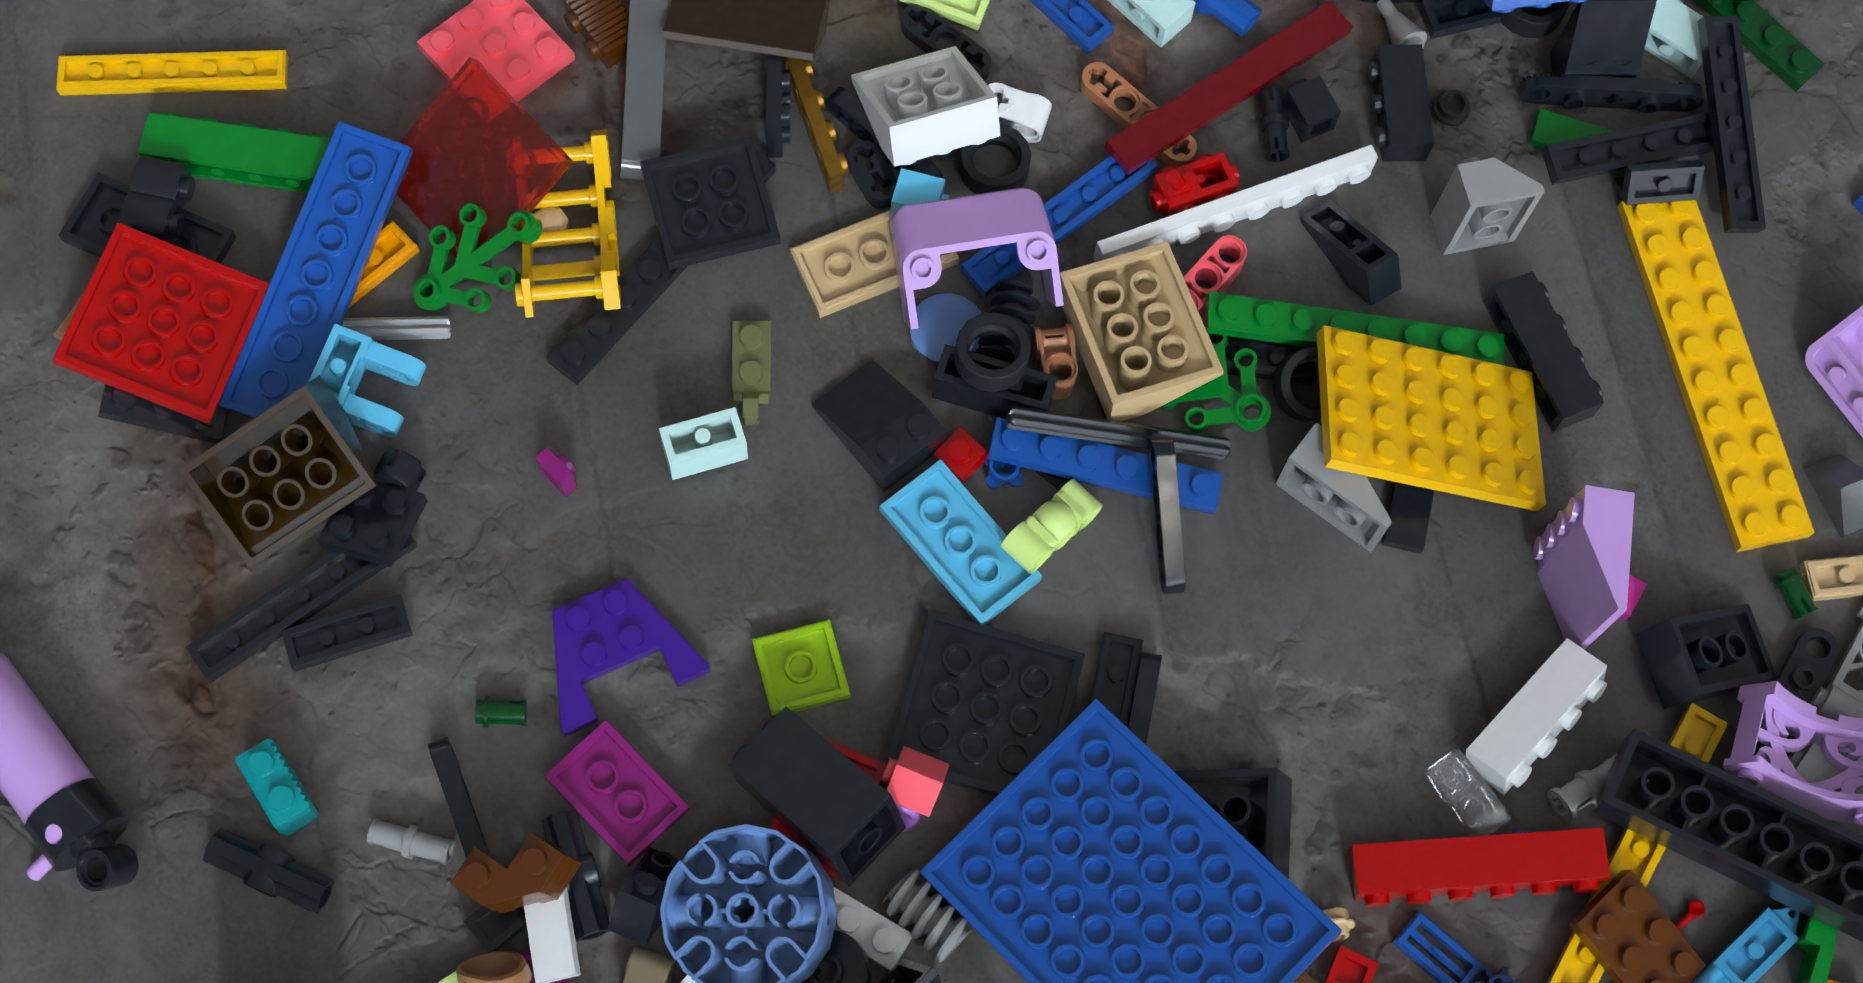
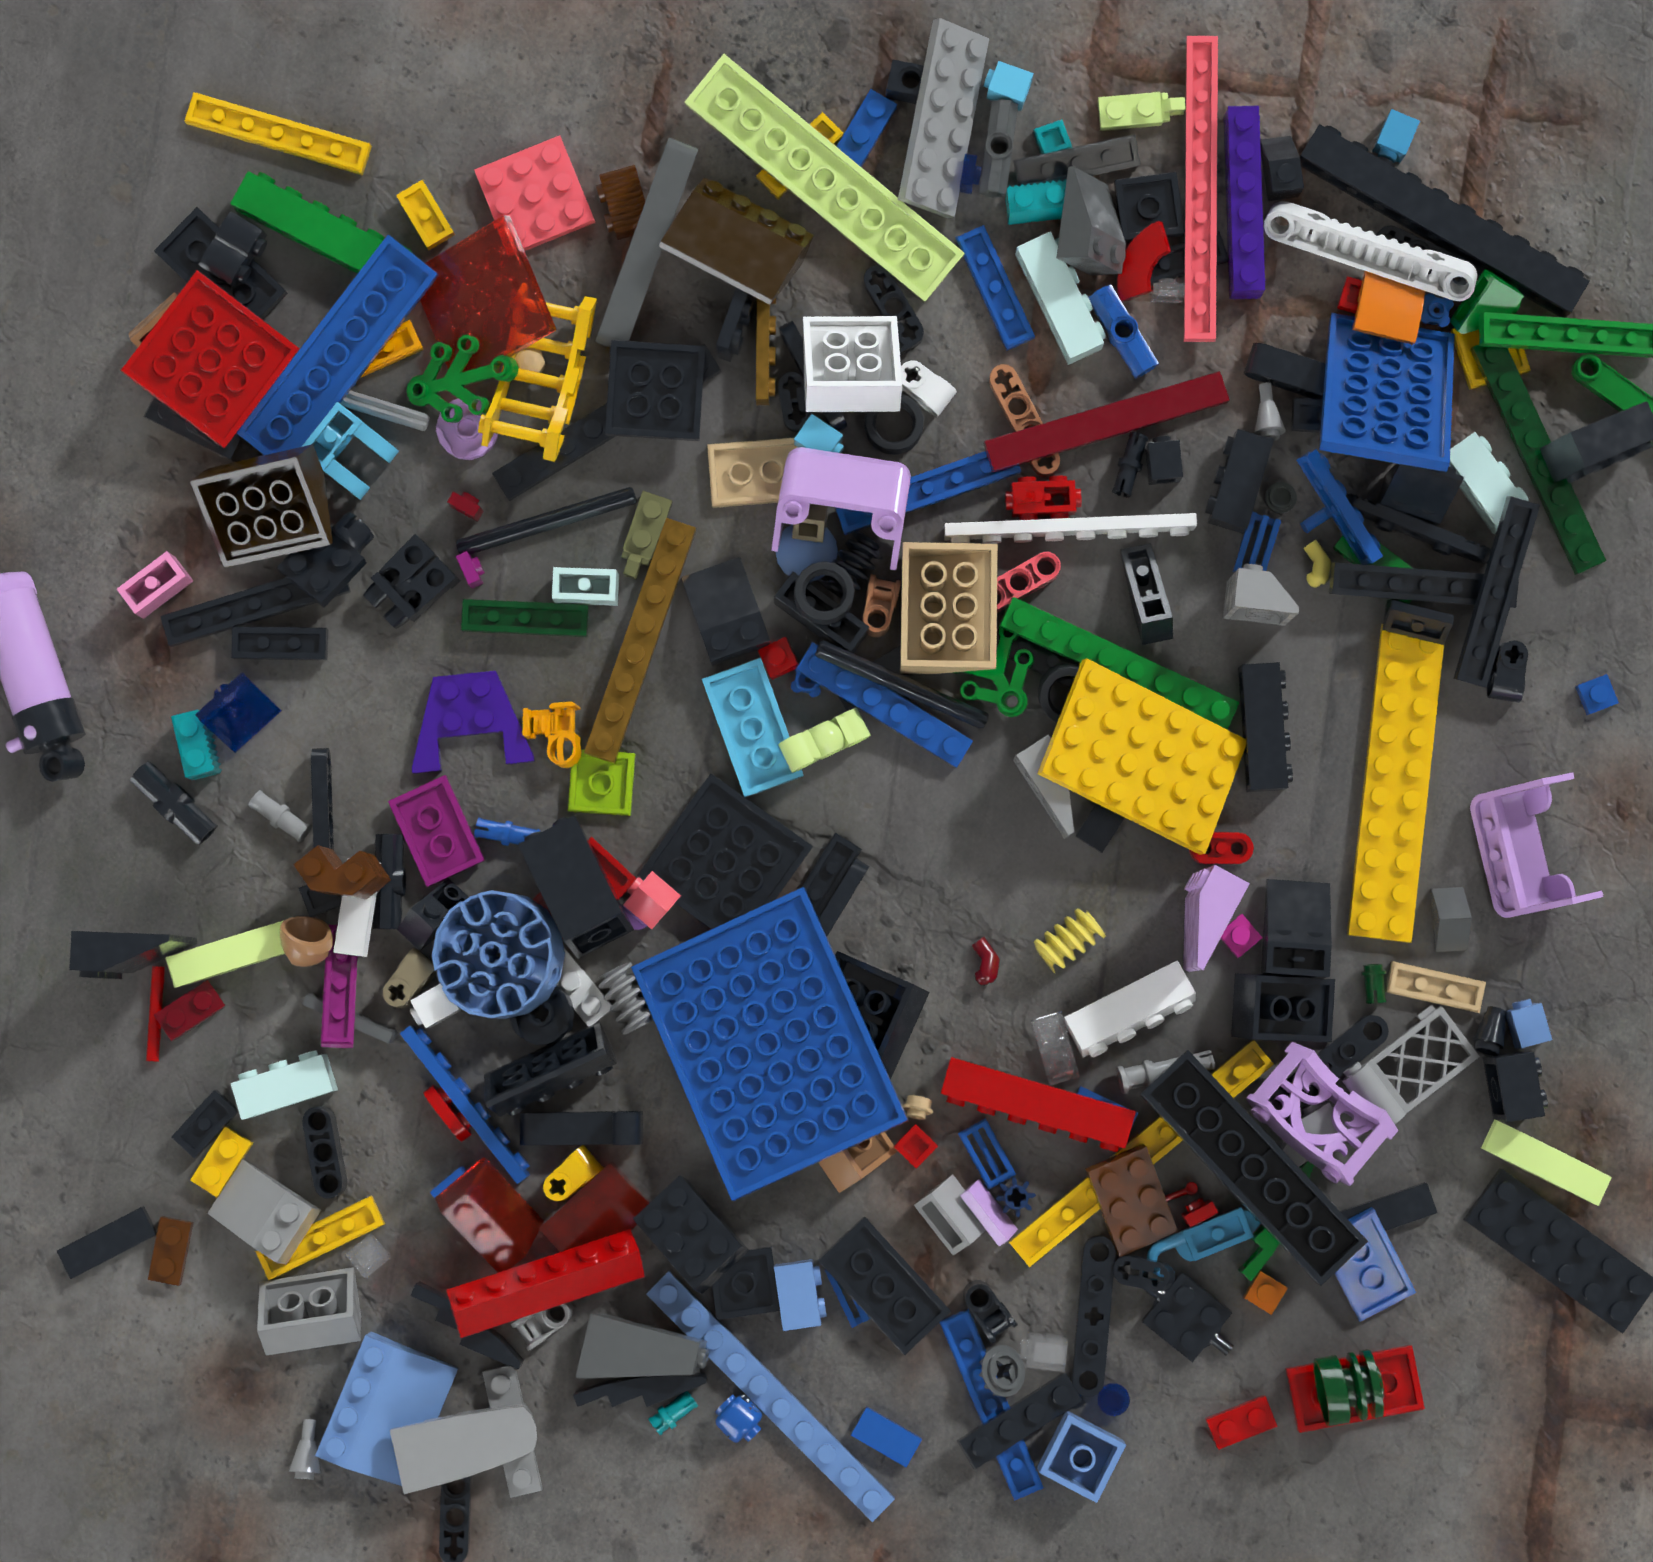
camera: 30 degrees right, 15 degrees up
(168, 610) = (154, 585): none -> bright pink brick
(320, 727) = (238, 712): none -> clear blue tile
(375, 104) = (425, 215): none -> yellow plate
(489, 508) = (412, 582): none -> black hips
(500, 712) = (372, 741): dark green pin -> none
(503, 327) = (463, 438): none -> lavender tile
(527, 401) = (466, 505): none -> dark red plate
(631, 390) = (546, 521): none -> black axle
(641, 506) = (525, 618): none -> dark green plate
(698, 767) = (503, 832): none -> blue pin
(724, 618) = (559, 723): none -> light orange piece
(790, 491) = (640, 640): none -> pearl gold plate
(948, 291) = (813, 526): none -> dark tan brick
(1167, 516) = (913, 763): beam -> none
(1346, 720) = (989, 962): none -> dark red arm
(1426, 659) = (1068, 939): none -> light yellow piece
(1444, 139) = (1264, 521): none -> blue tile
(1522, 90) = (1338, 507): none -> blue plate
(1522, 158) = (1321, 564): none -> light yellow arm
(1555, 498) = (1221, 851): none -> red plate
(1685, 561) = (1297, 929): none -> black slope
(1721, 931) = (1198, 1211): none -> red plate
(1783, 208) = (1508, 676): none -> black piece

